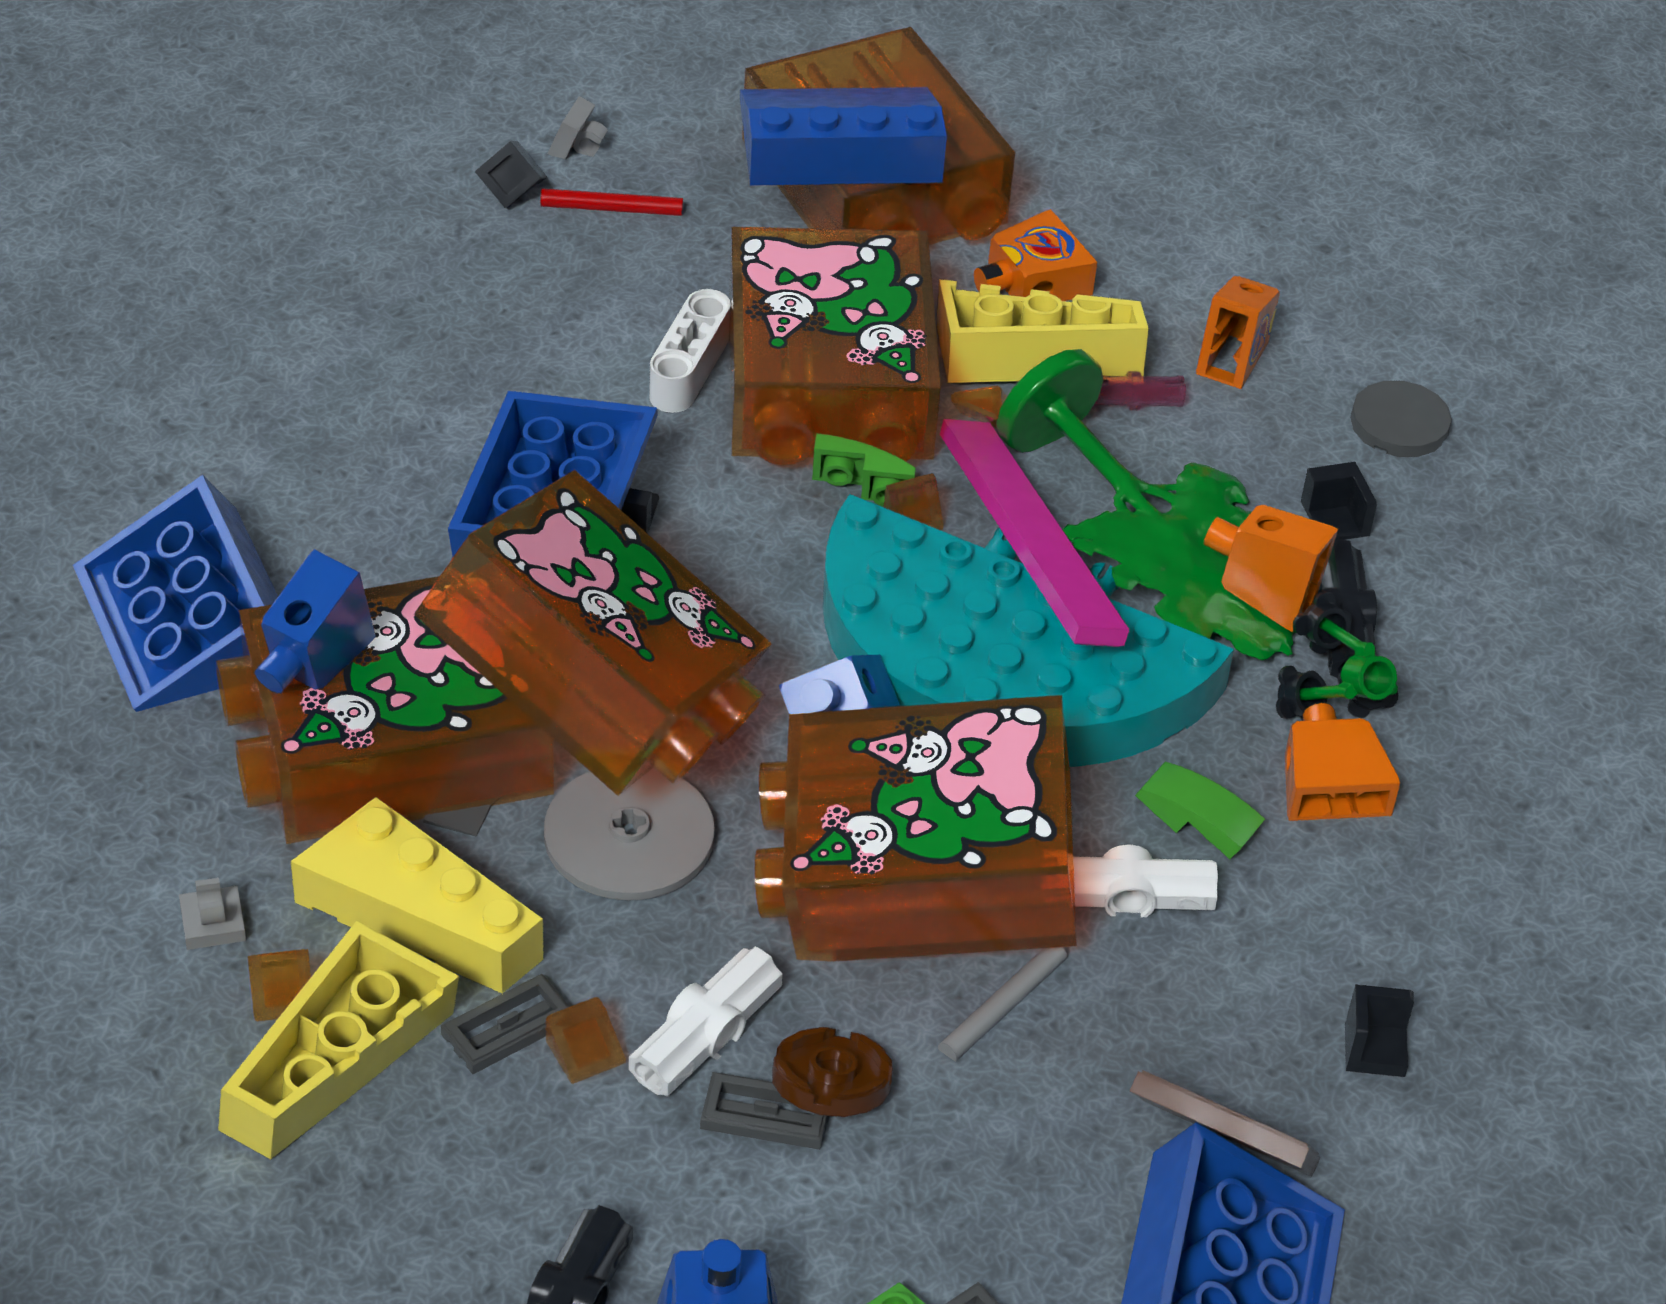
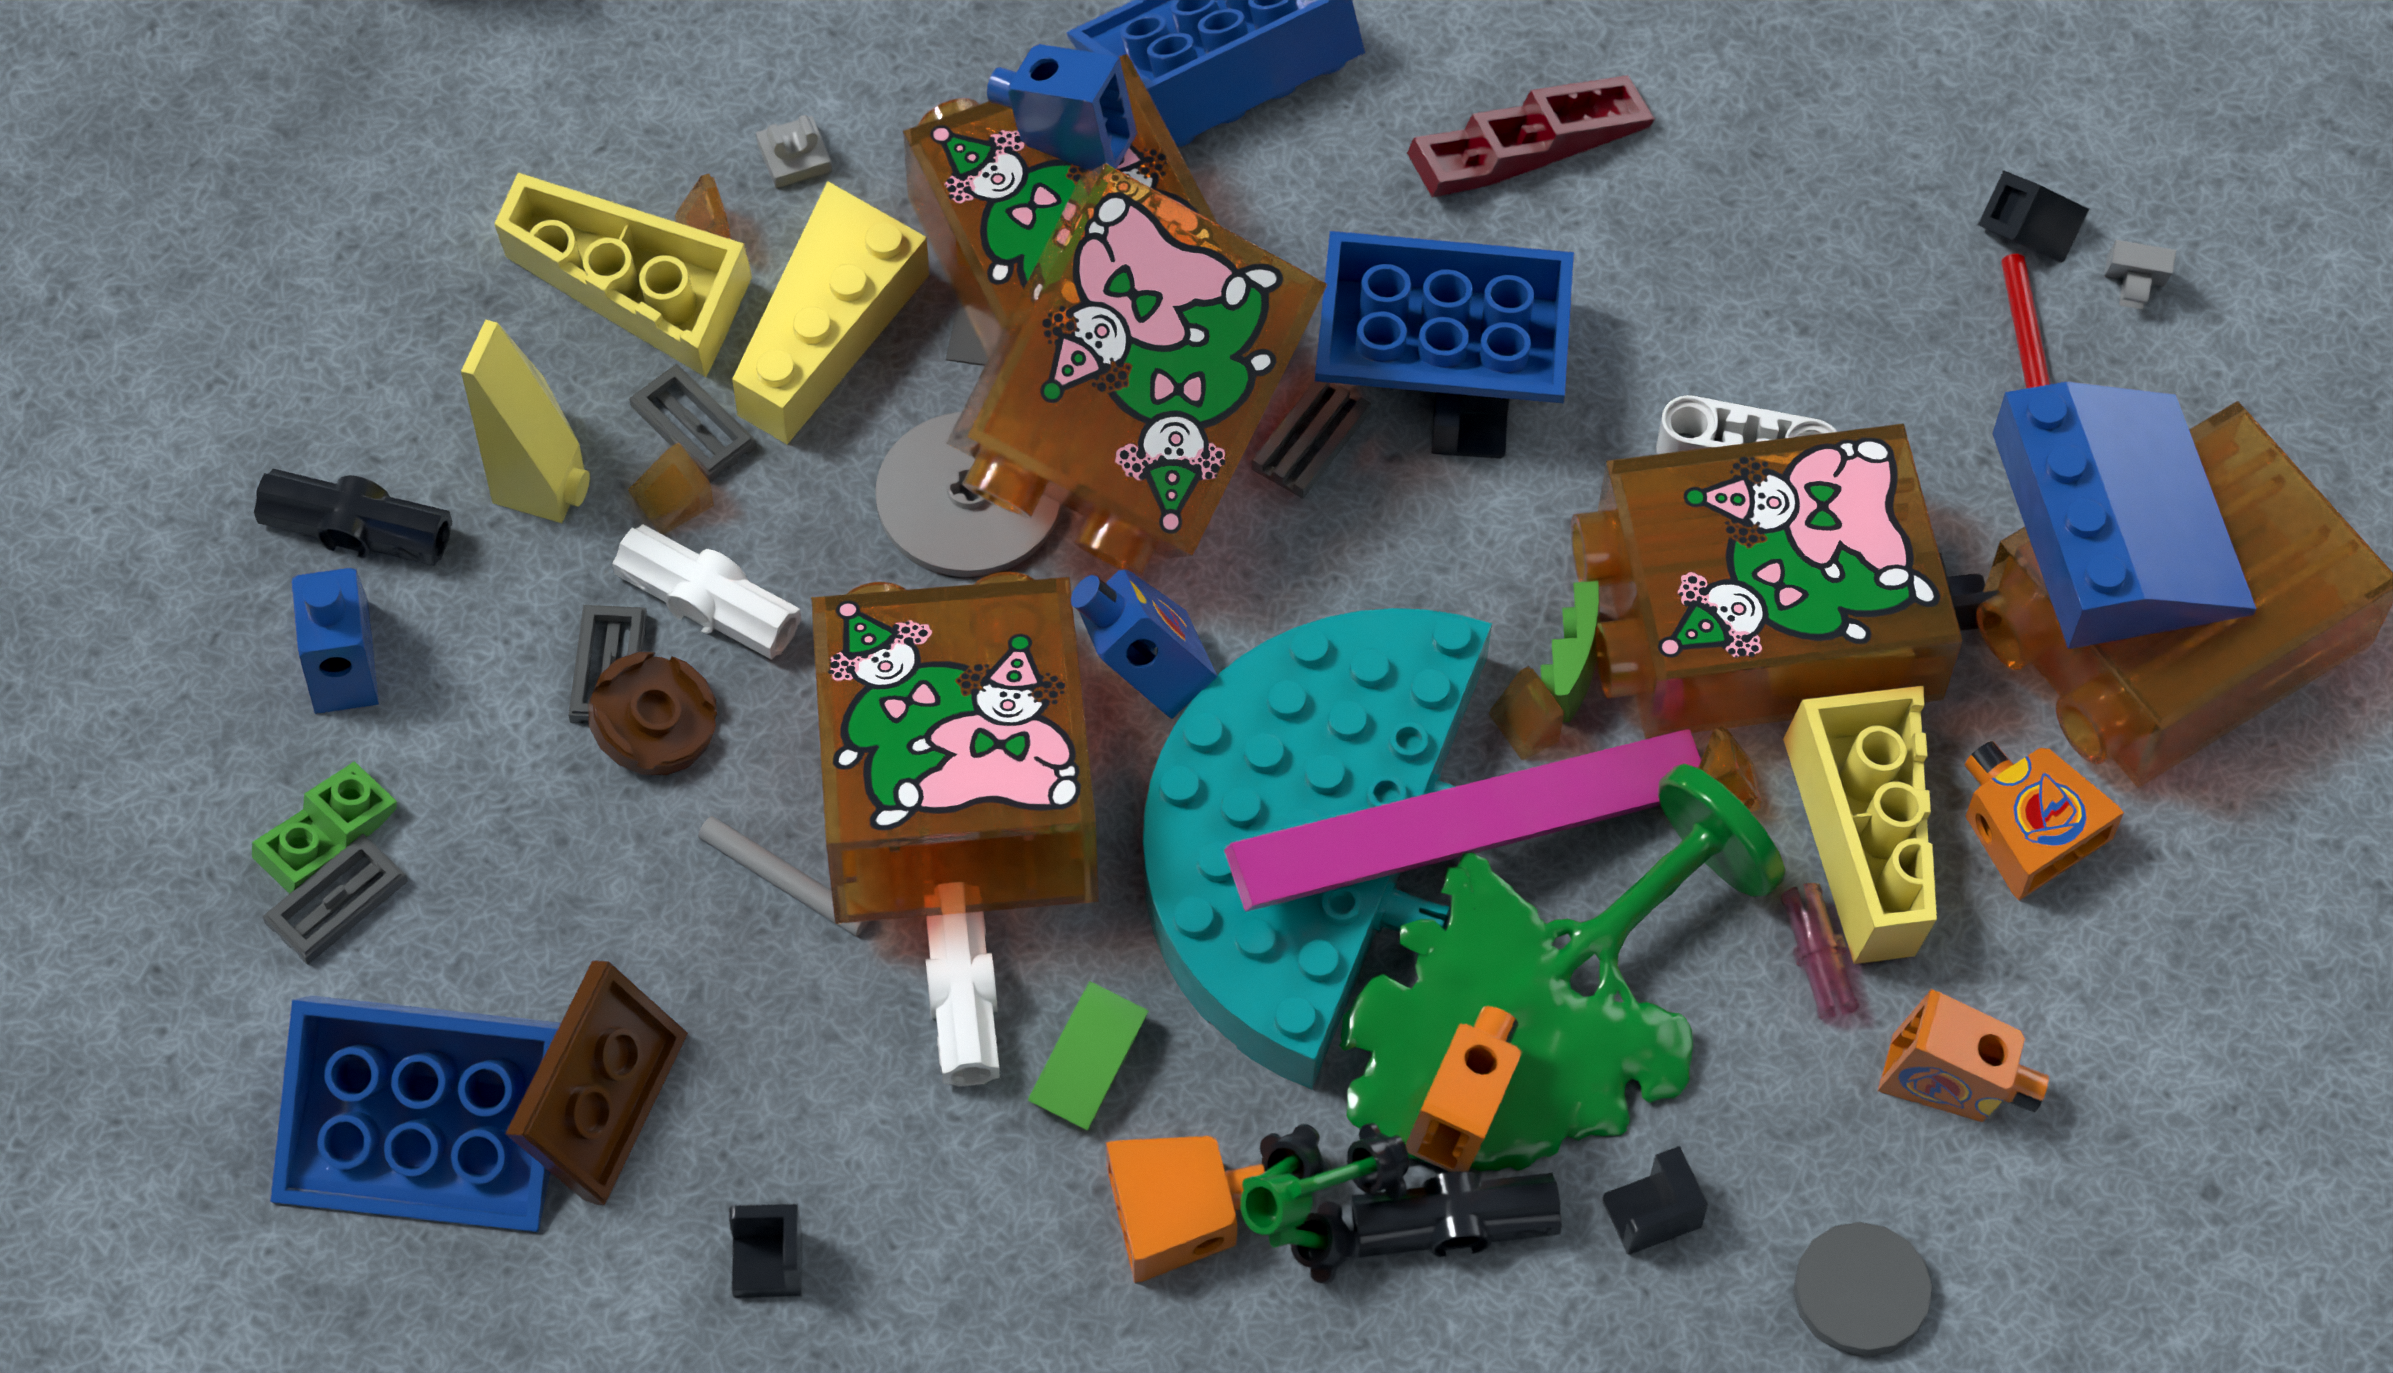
camera: 85 degrees right, 15 degrees up
(350, 429) = (1523, 138): none -> dark red slope
(527, 1107) = (521, 430): none -> light yellow wedge

